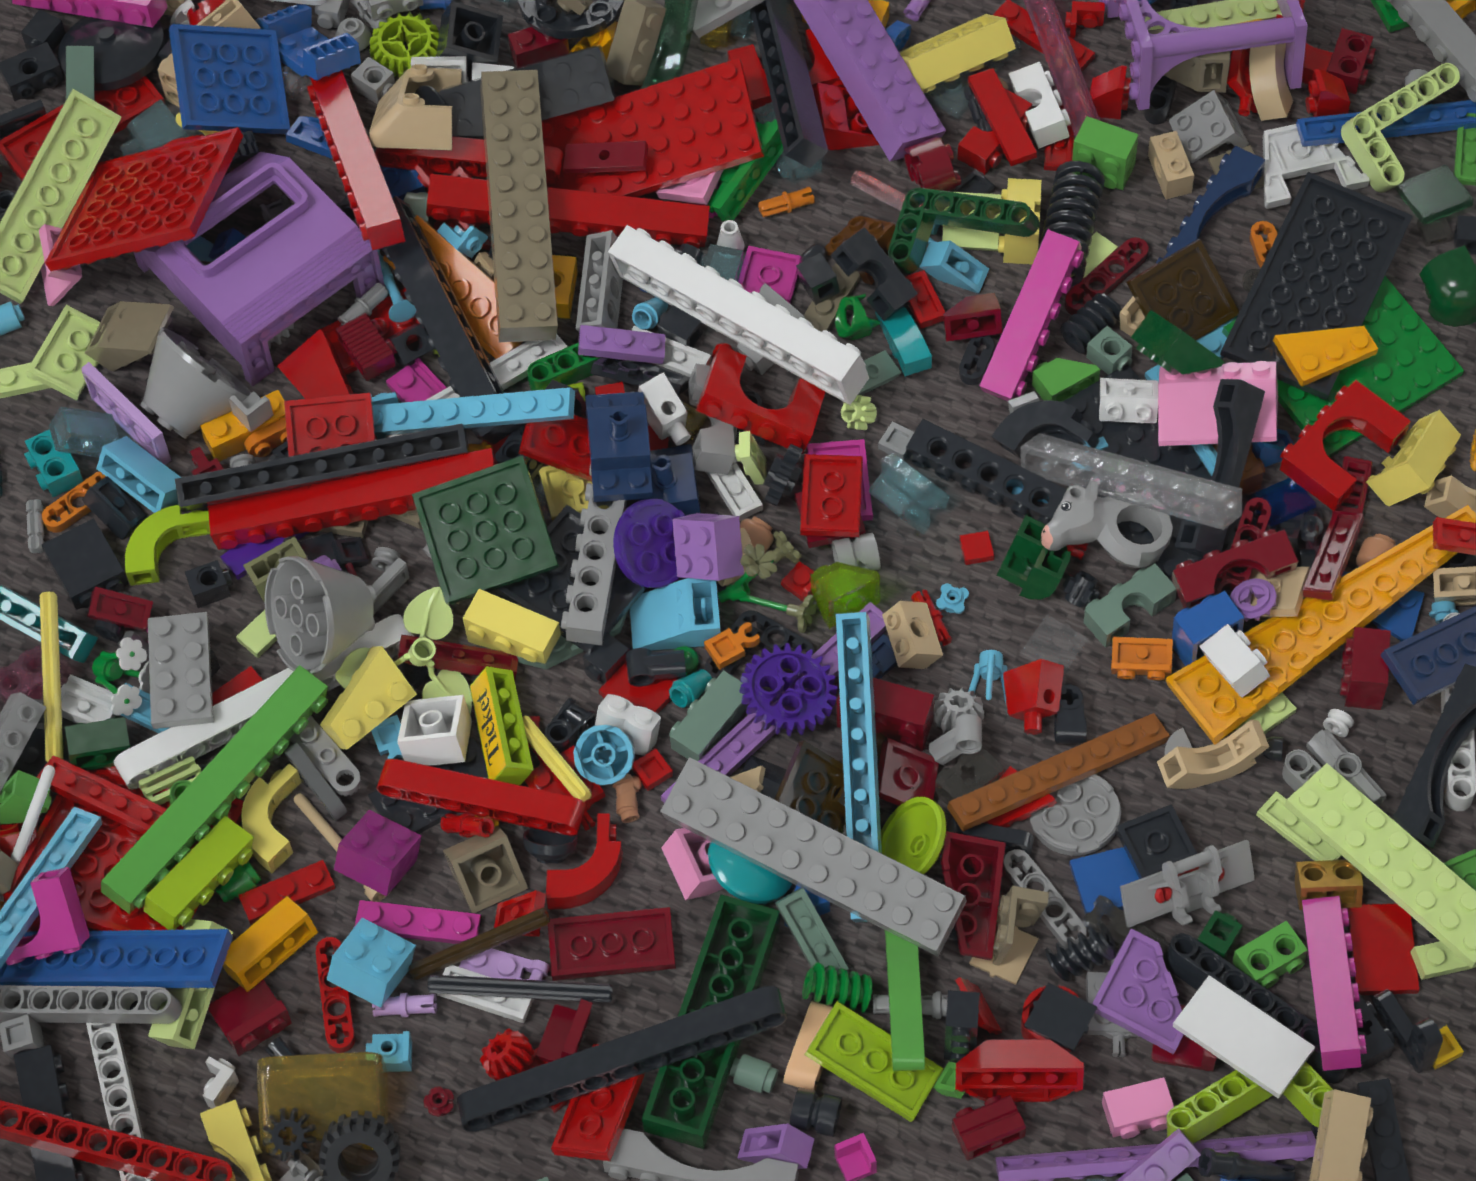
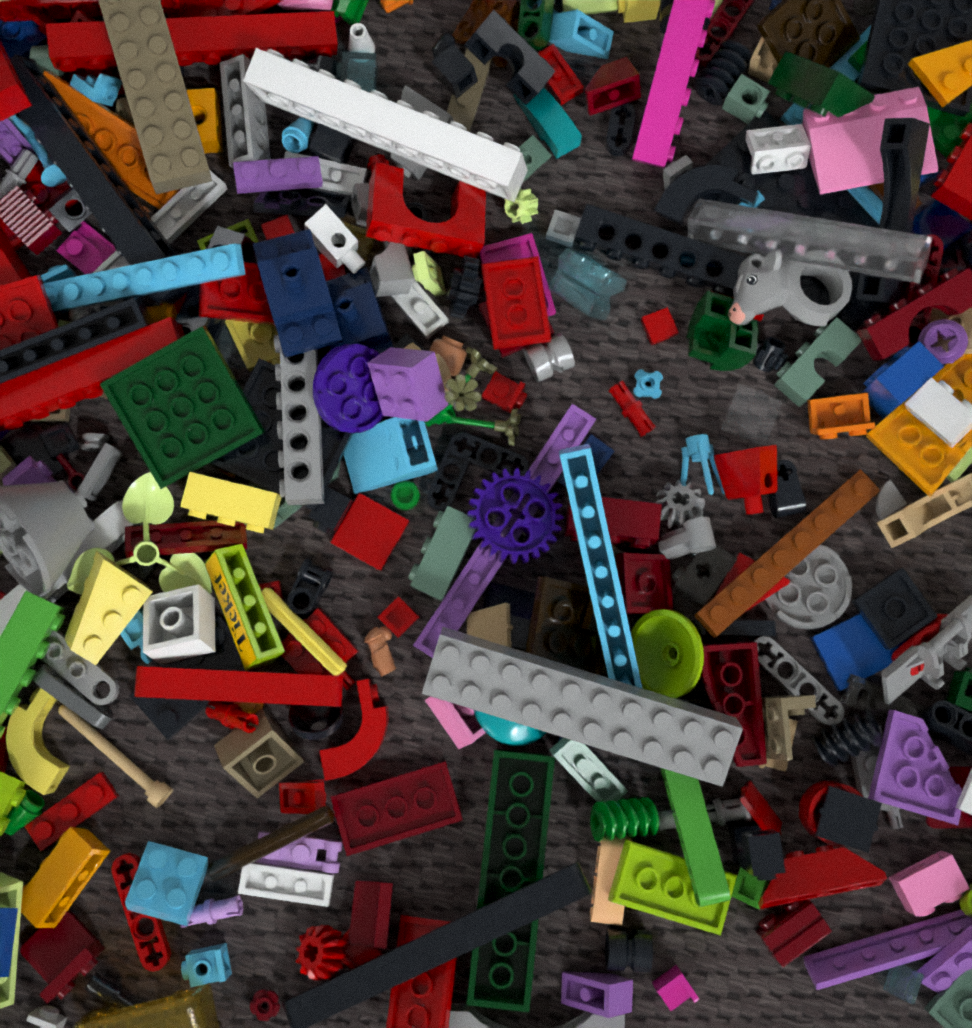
camera: 15 degrees left, 20 degrees up
(377, 852) = (149, 764): magenta brick -> none
(421, 922) = (205, 819): dark pink plate -> none
(520, 988) = (318, 880): black axle -> none
(552, 368) = (214, 209): green beam -> none
(604, 754) = (350, 619): medium azure cylinder -> none
(636, 721) = (372, 579): white brick -> none
(647, 666) = (373, 513): black piece -> none
(689, 688) = (417, 526): teal cone -> none
(729, 647) = (446, 479): orange plate -> none
(754, 1074) = (563, 922): sand green brick -> none
(770, 267) = (404, 67): dark pink tile -> none
(844, 589) = (546, 400): clear neon green slope -> none
(861, 324) = (506, 111): green piece -> none
(912, 634) = (620, 432): tan brick -> none
(1063, 378) = (707, 137): bright green slope -> none

